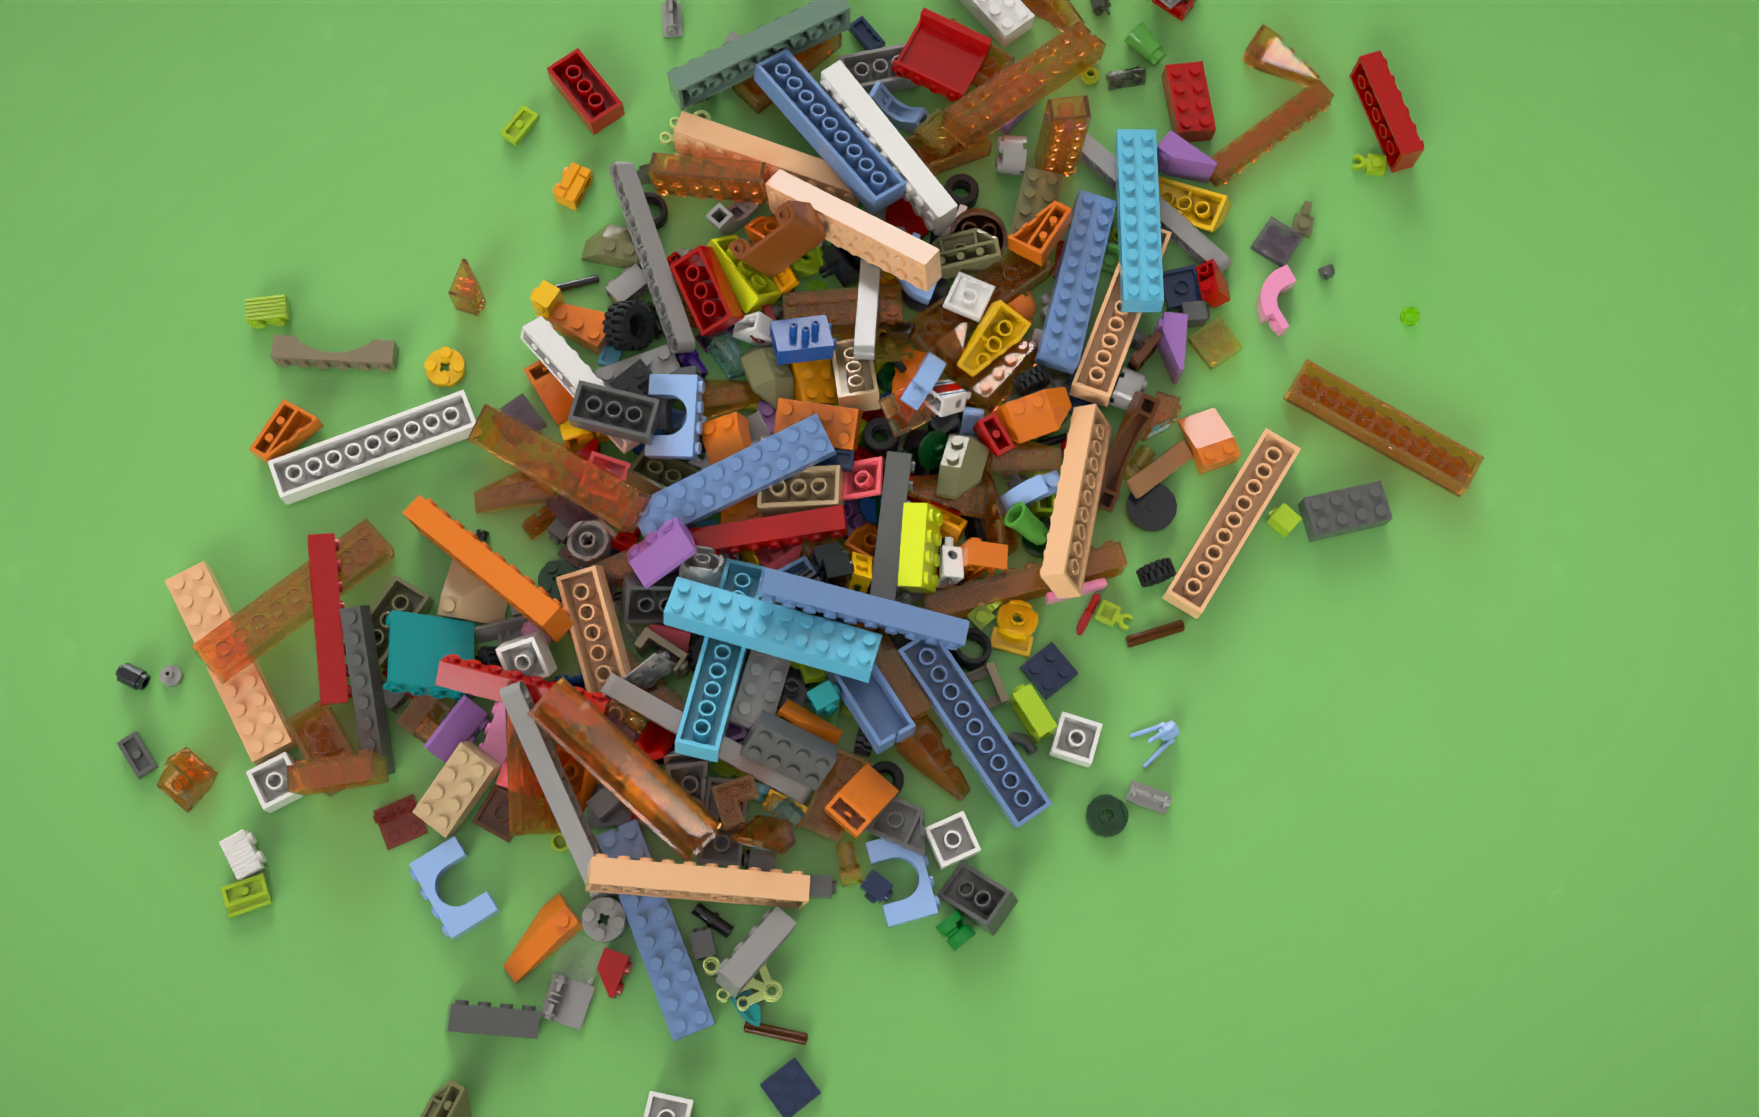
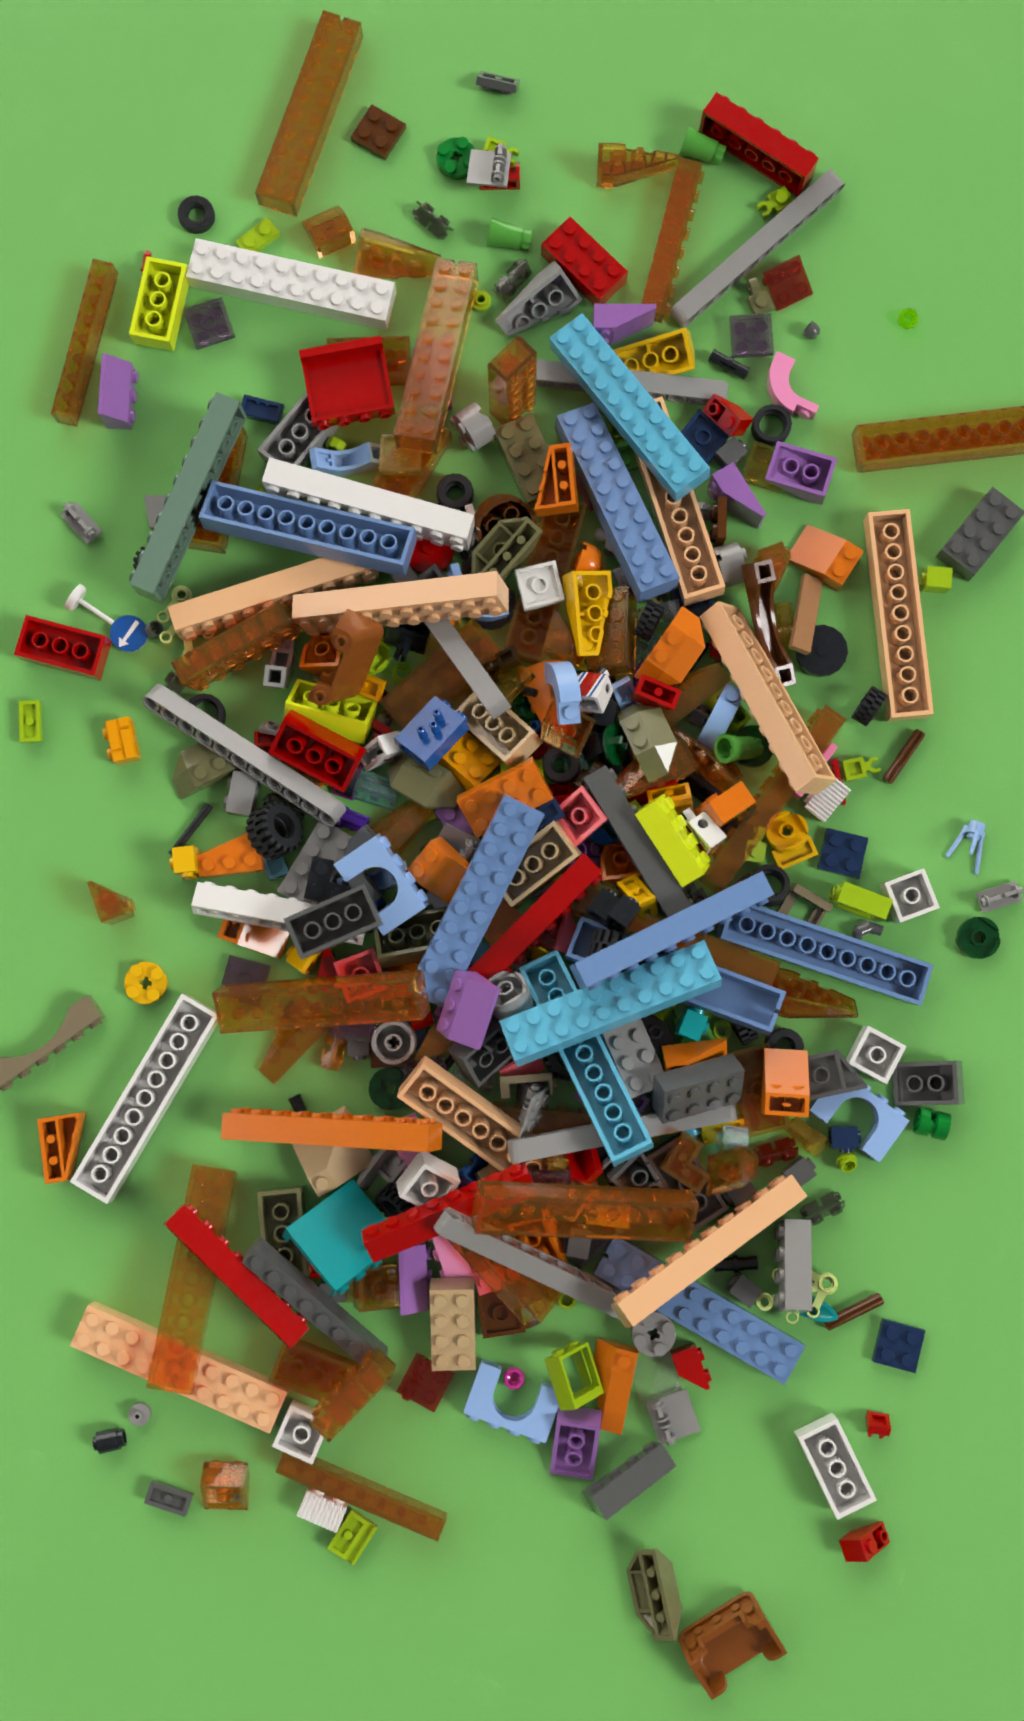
camera: 30 degrees left, 10 degrees up
(283, 868) = (365, 1495): none -> clear orange brick
(469, 871) = (513, 1378): none -> dark pink tile
(475, 958) = (576, 1443): none -> medium lavender slope
(530, 909) = (587, 1371): none -> lime window
(640, 116) = (126, 632): none -> piece
(662, 124) = (153, 625): none -> dark grey hinge
(804, 855) = (783, 1151): none -> clear red hinge
(806, 930) = (830, 1206): none -> clear smoke hinge
(848, 725) = (728, 1029): none -> lime plate
(861, 912) = (847, 1162): none -> lime plate
(901, 95) = (335, 443): none -> lime tile
(1068, 616) = (826, 801): none -> white brick
(1136, 105) = (541, 299): none -> light grey wedge
(1237, 364) = (801, 472): none -> medium lavender slope
(1243, 250) = (729, 364): none -> black pin
(1246, 303) = (777, 411): none -> black tyre
(1330, 184) = (756, 248): none -> light grey beam
(1334, 224) = (787, 283): none -> clear red hinge
(1342, 85) = (702, 147): none -> bright green plant

